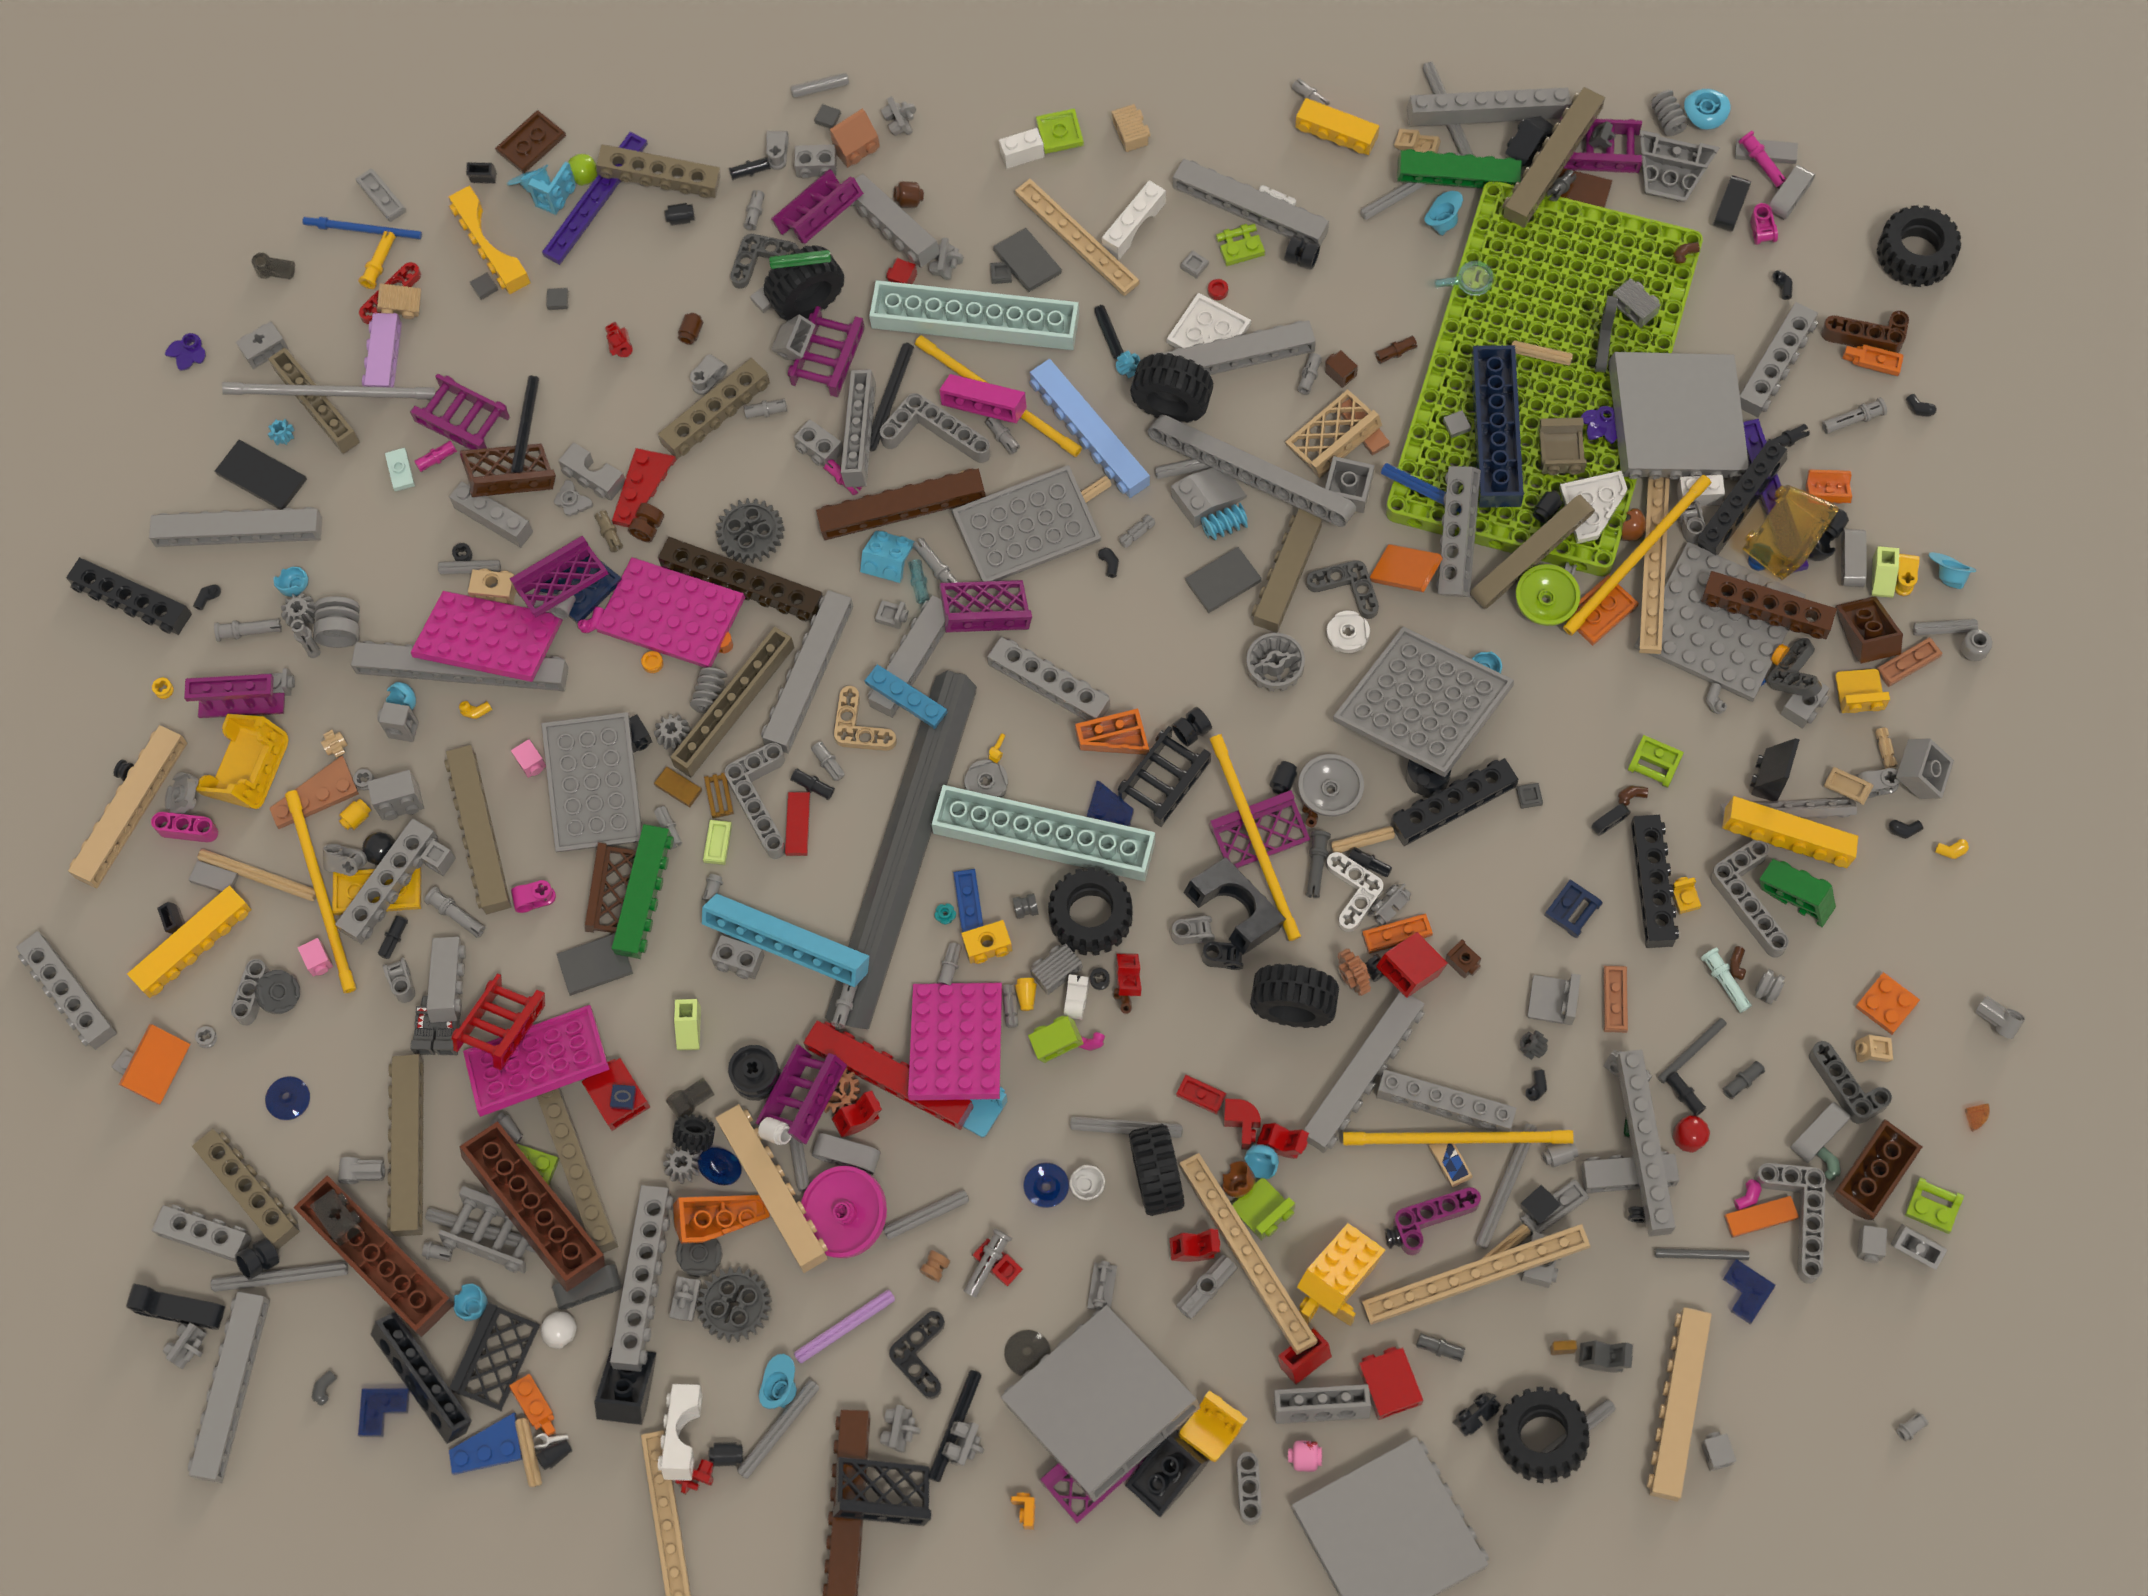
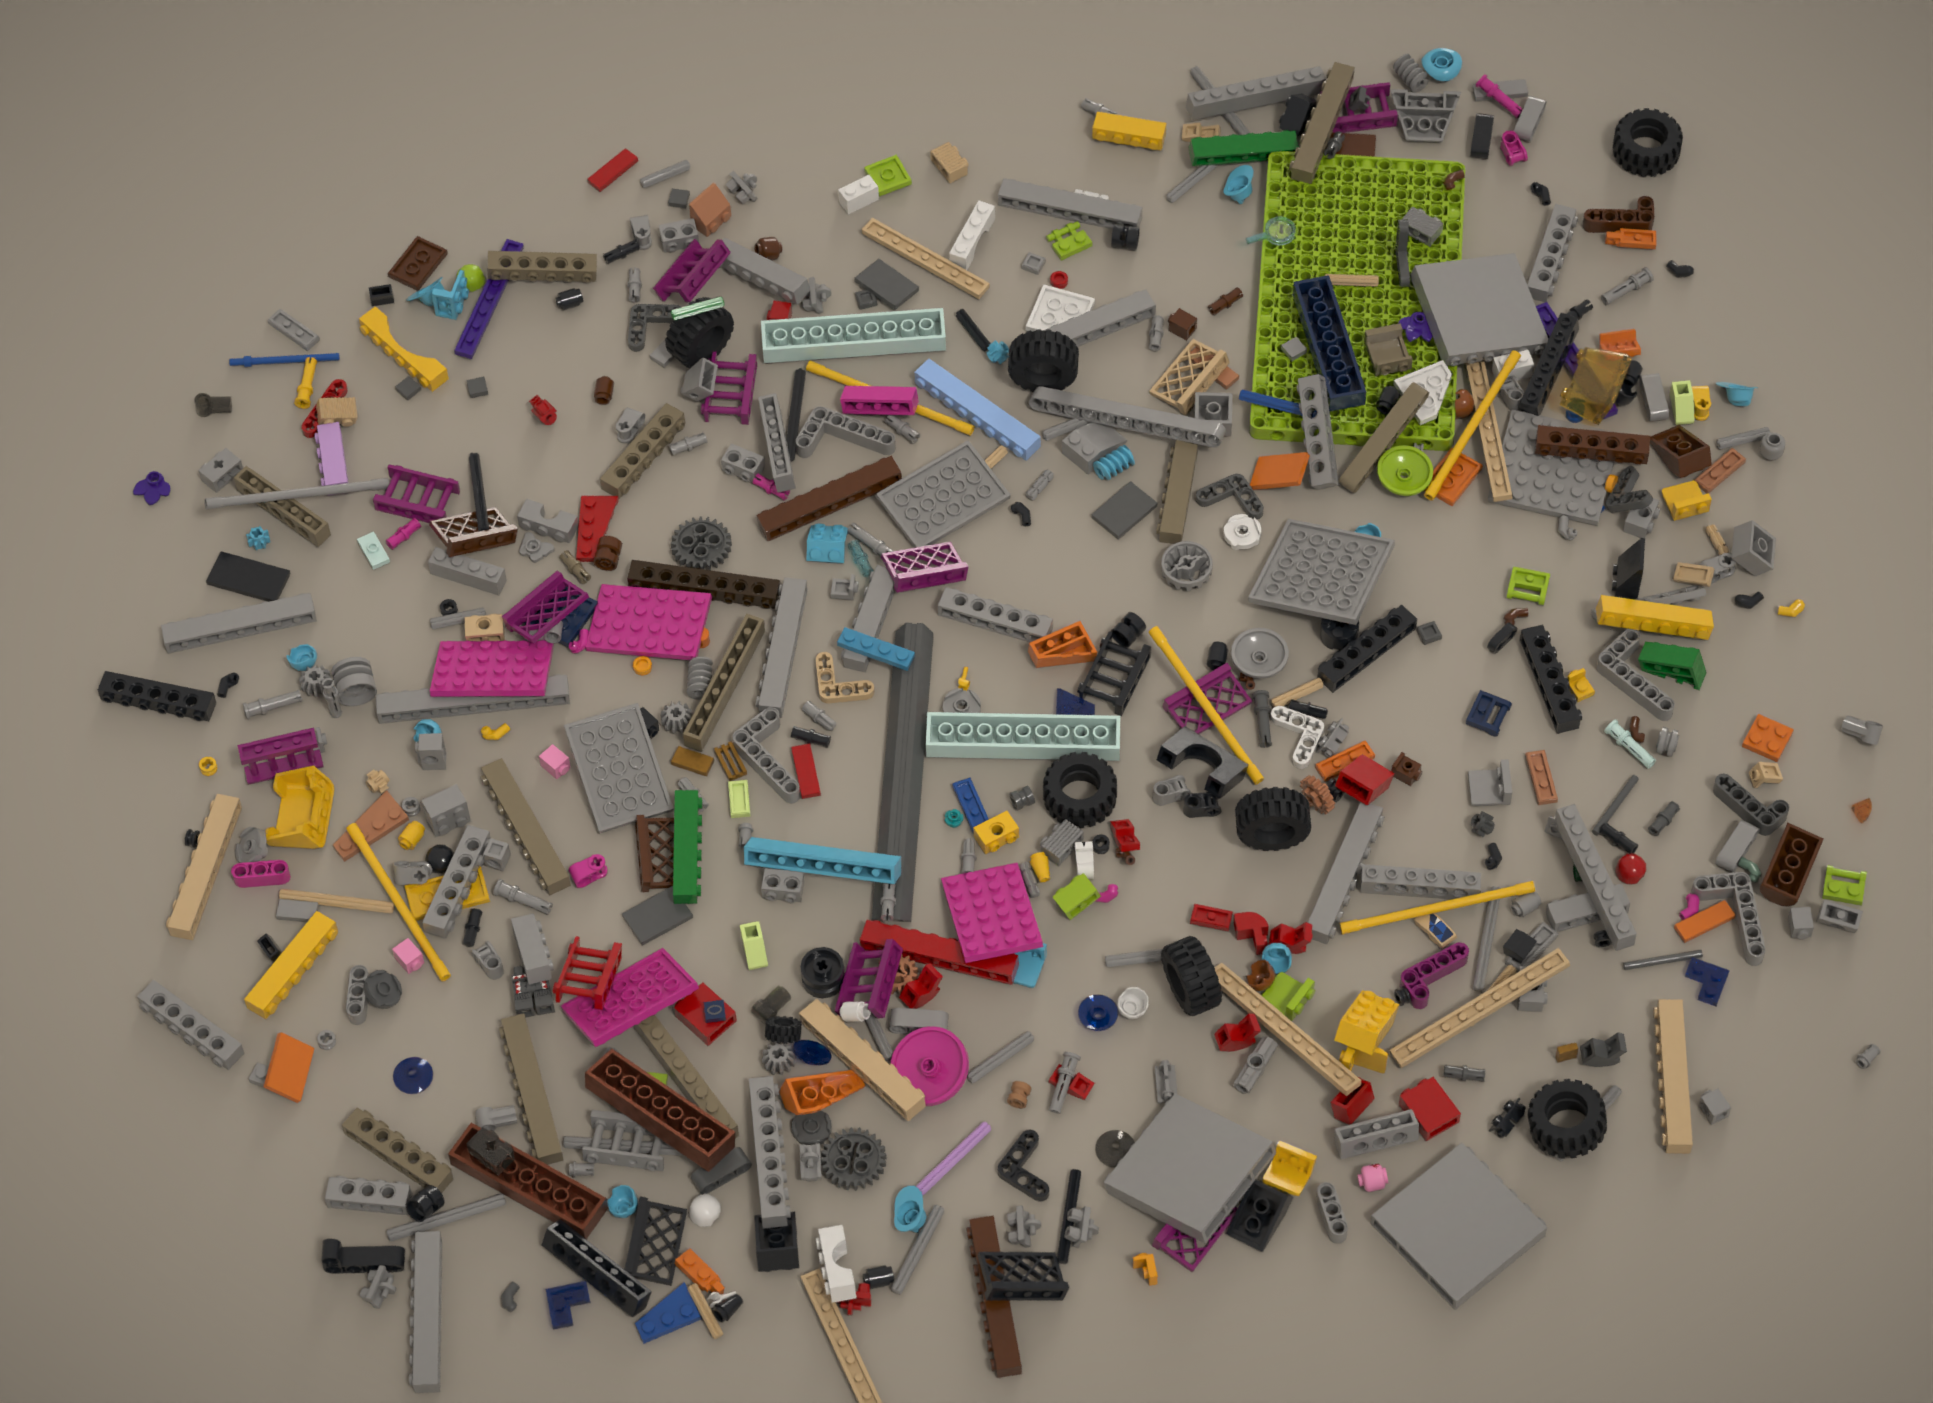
camera: 15 degrees left, 10 degrees down
(764, 70) = (612, 170): none -> red tile

